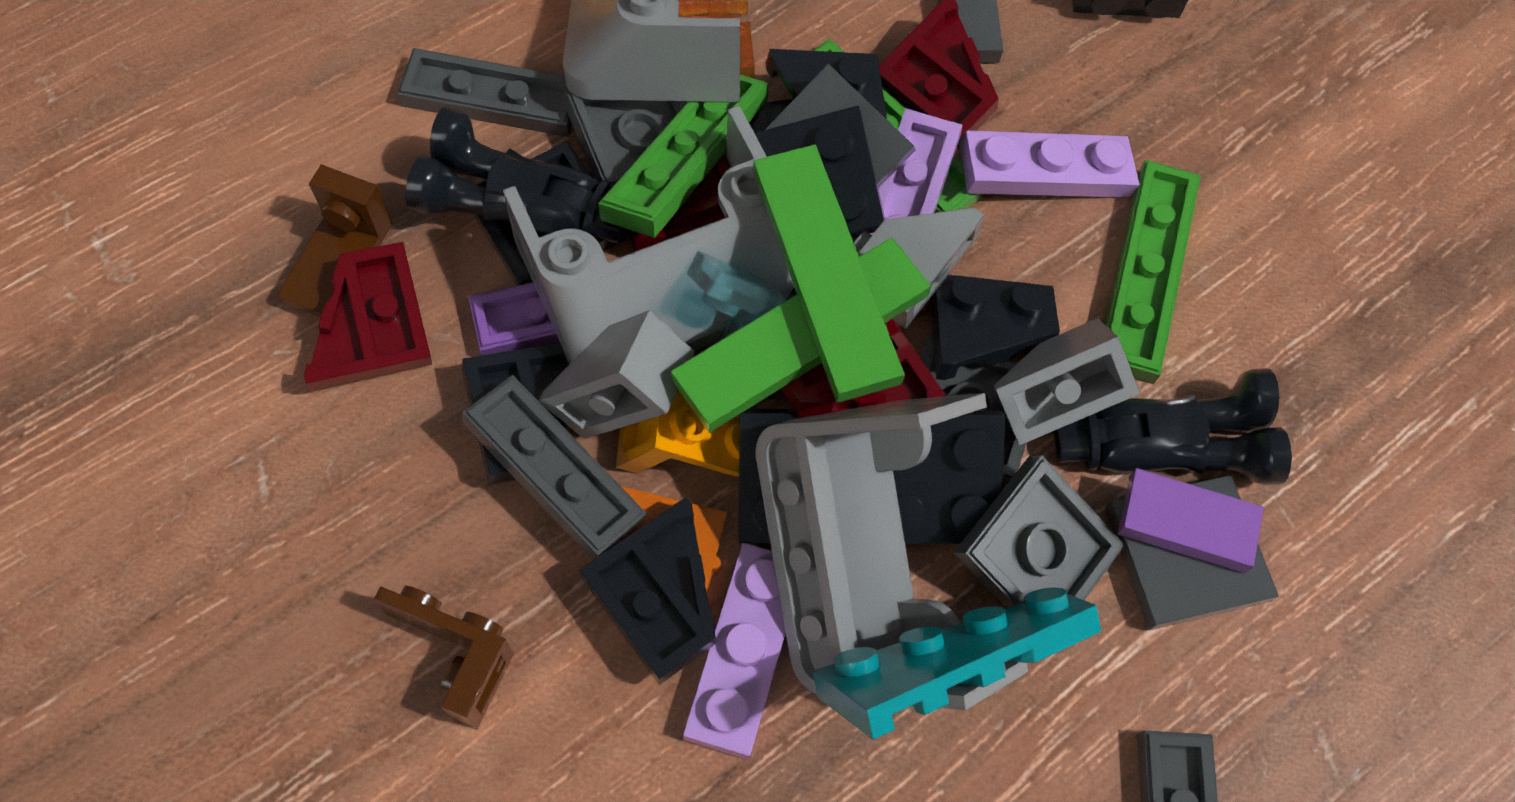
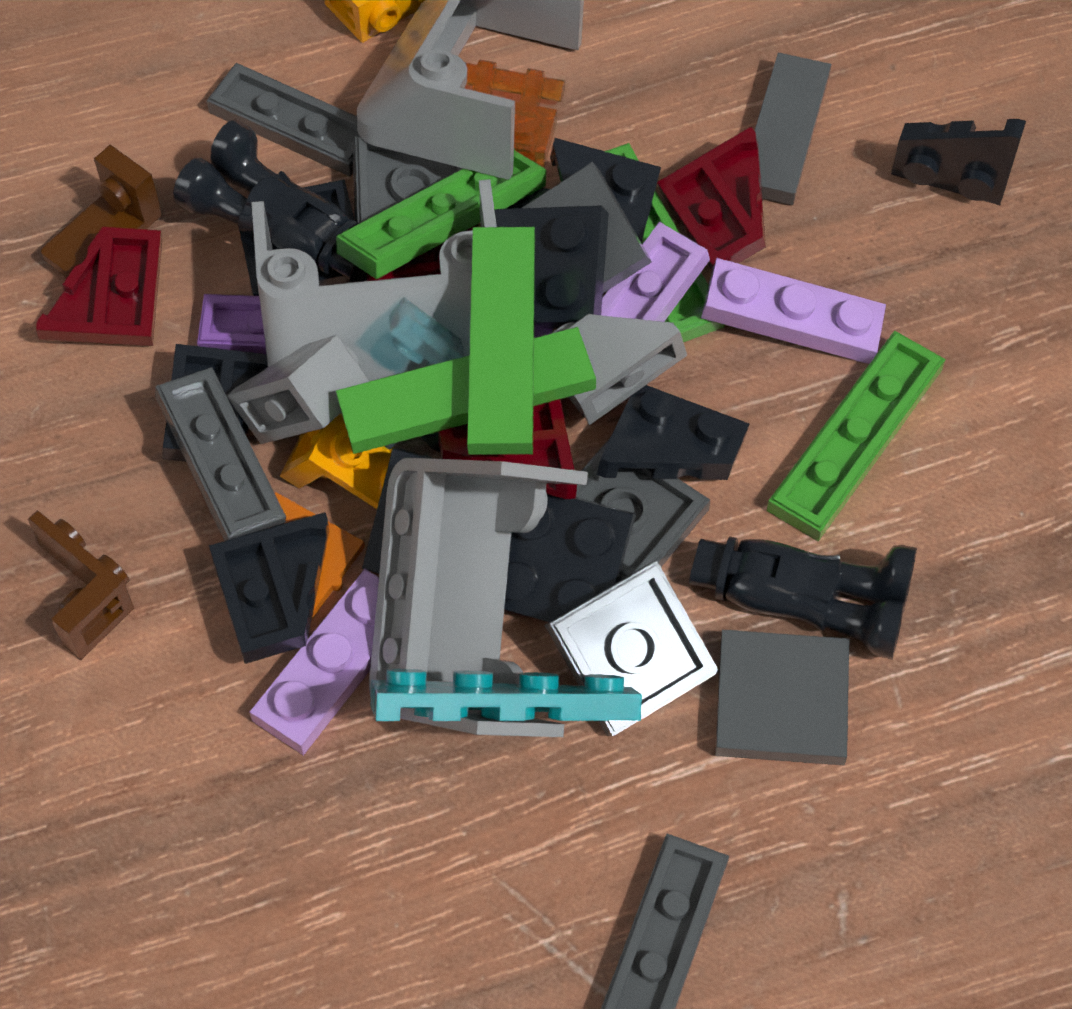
camera: 25 degrees right, 5 degrees down
(1065, 381) = (710, 506): light grey slope -> none
(1191, 520) = (785, 664): medium lavender tile -> none

